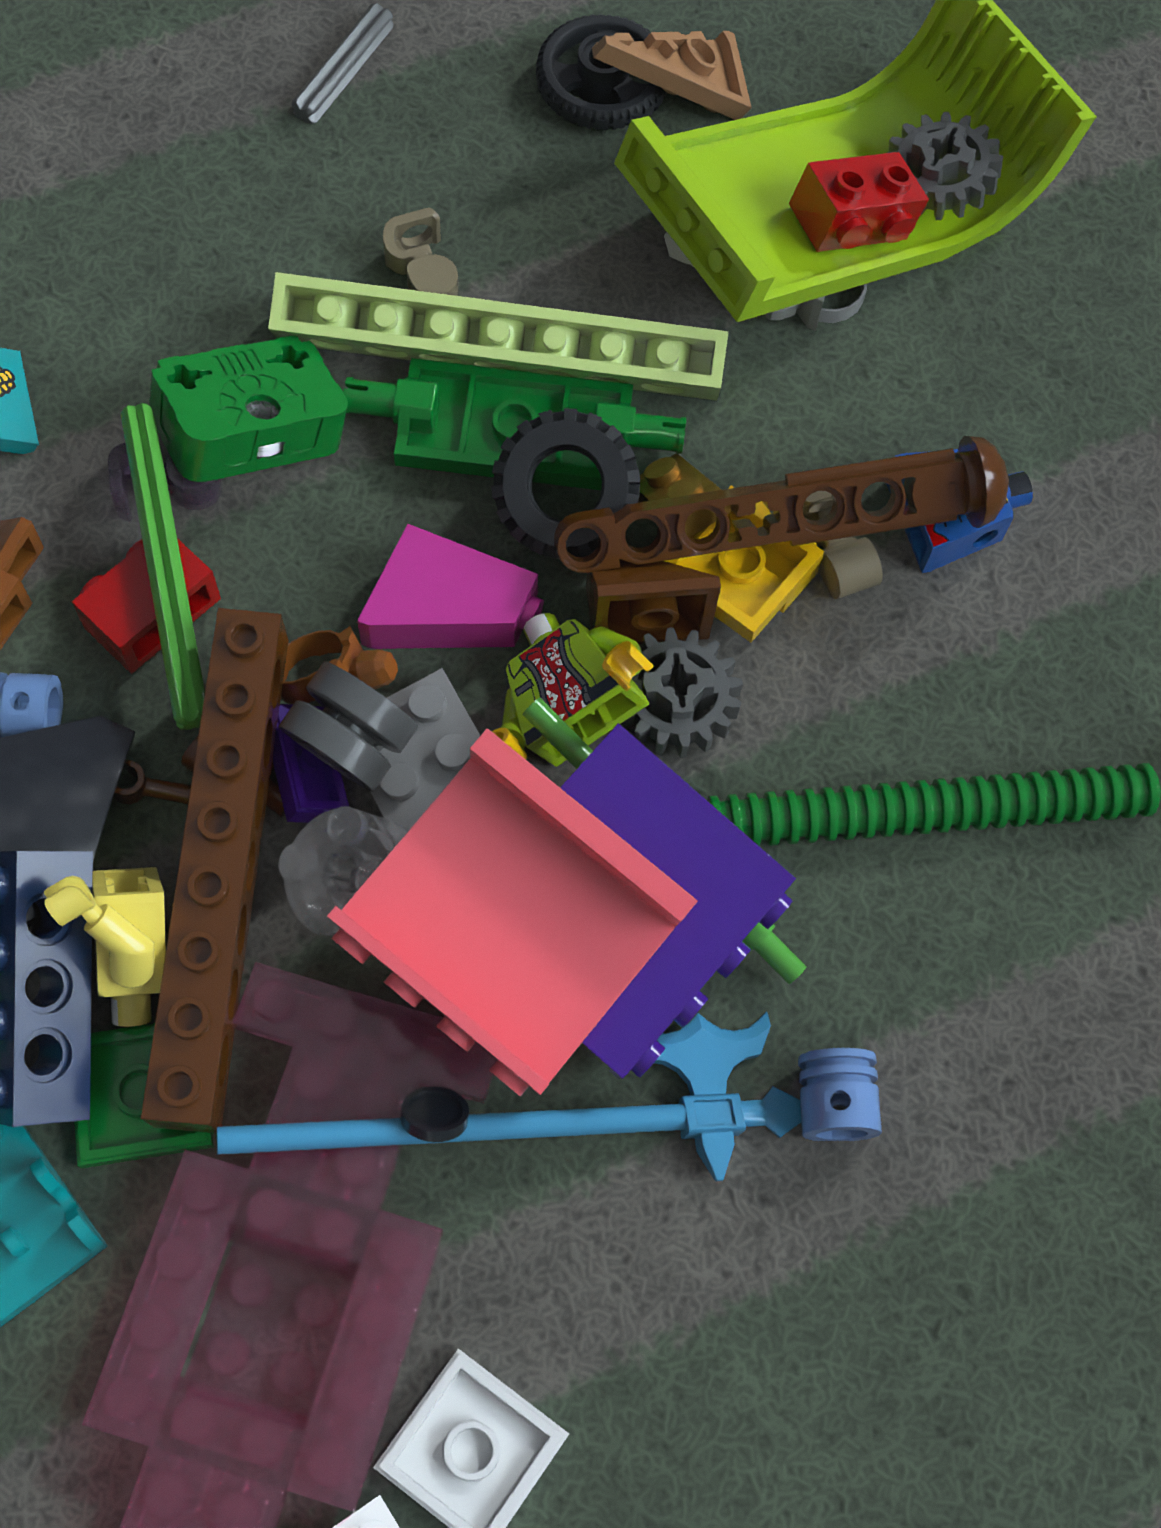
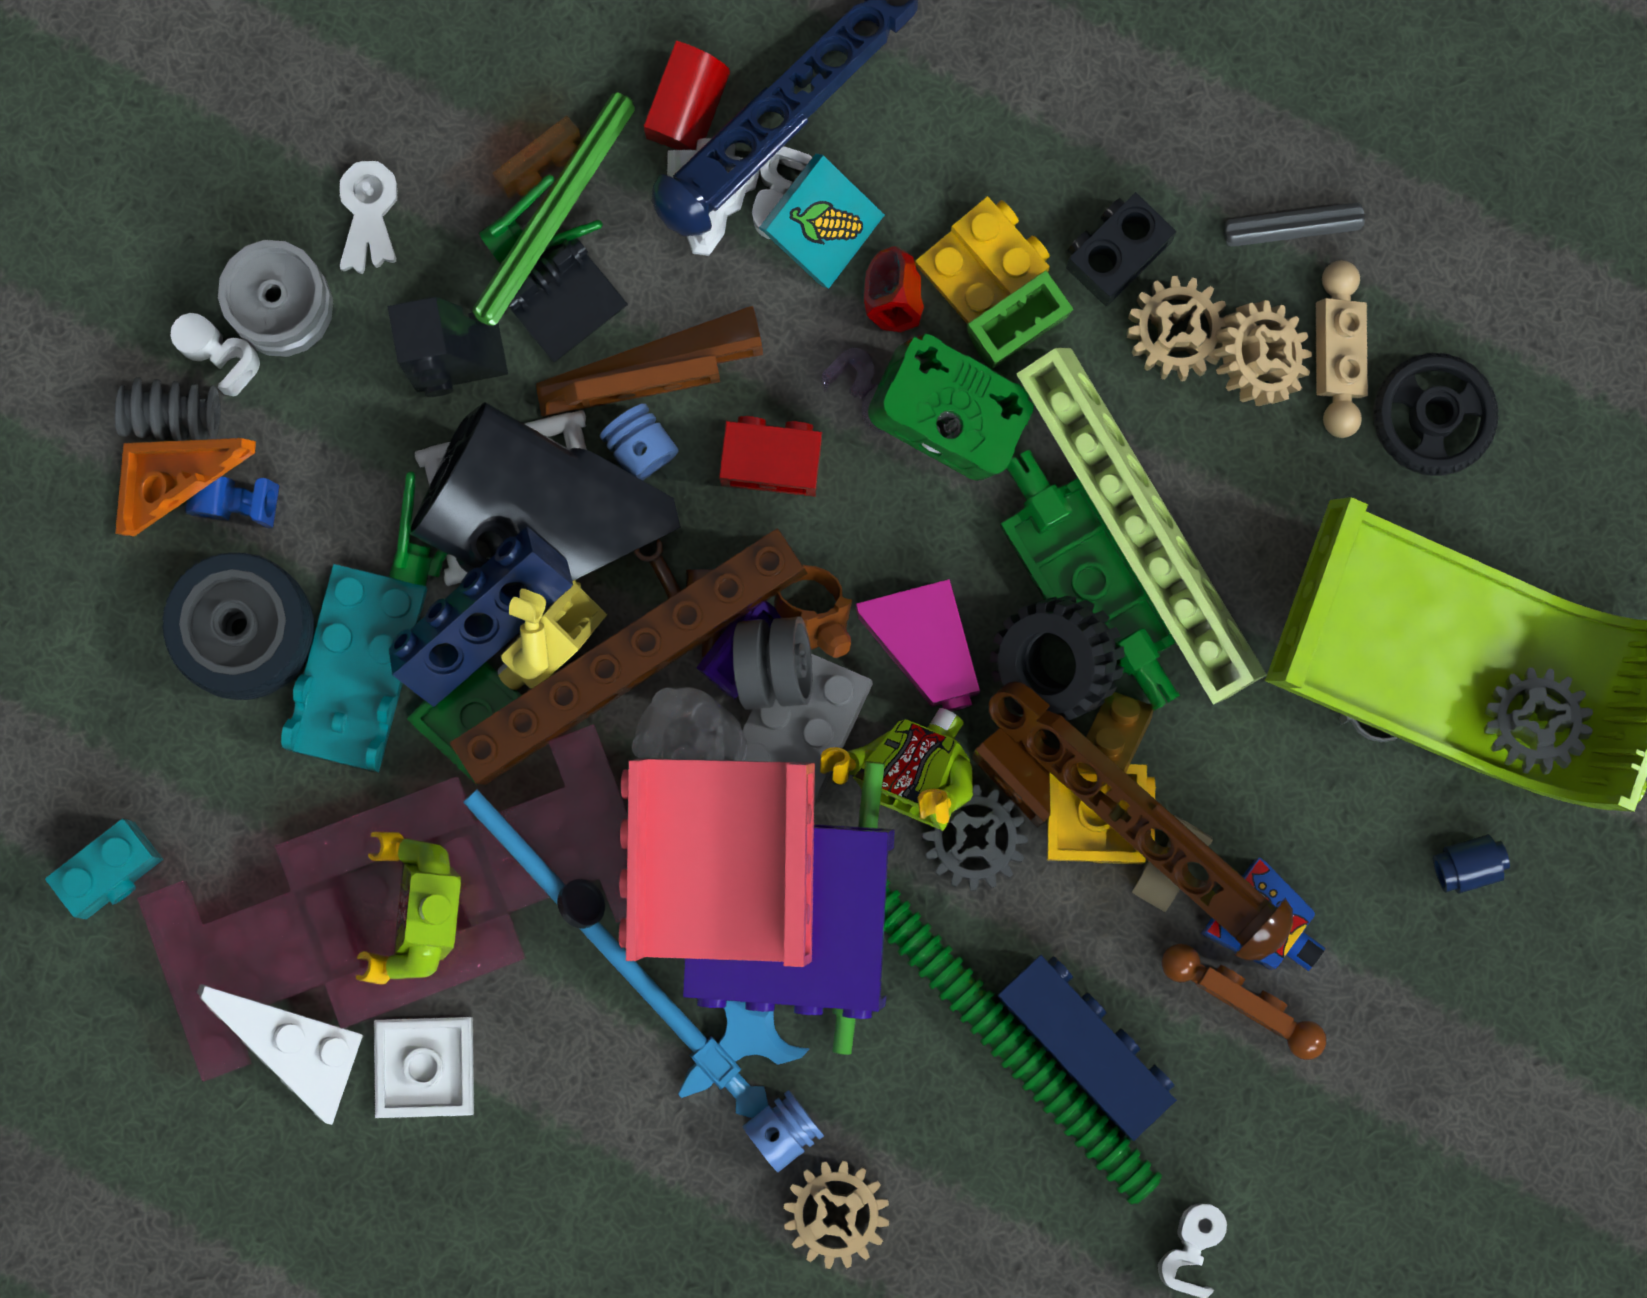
camera: 60 degrees right, 15 degrees up
(94, 385) = (893, 291): none -> red rock
(143, 301) = (983, 259): none -> yellow plate
(164, 566) = (793, 457): bright green axle -> none
(221, 296) = (1018, 320): none -> bright green brick
(235, 189) = (1127, 255): none -> black brick
(304, 1290) = (424, 913): none -> lime torso
(325, 206) = (1164, 315): none -> tan gear
(414, 255) = (1155, 437): dark tan leg -> none
(432, 149) = (1262, 353): none -> tan gear
(483, 100) = (1341, 349): none -> tan plate
(684, 66) = (1484, 481): medium nougat wing -> none
(858, 201) = (1443, 689): red brick -> none
(967, 733) = (1086, 1047): none -> dark blue brick
(968, 1136) = (818, 1228): none -> tan gear
(1028, 311) = (1471, 864): none -> dark blue brick
(1034, 567) = (1303, 1038): none -> dark orange plate

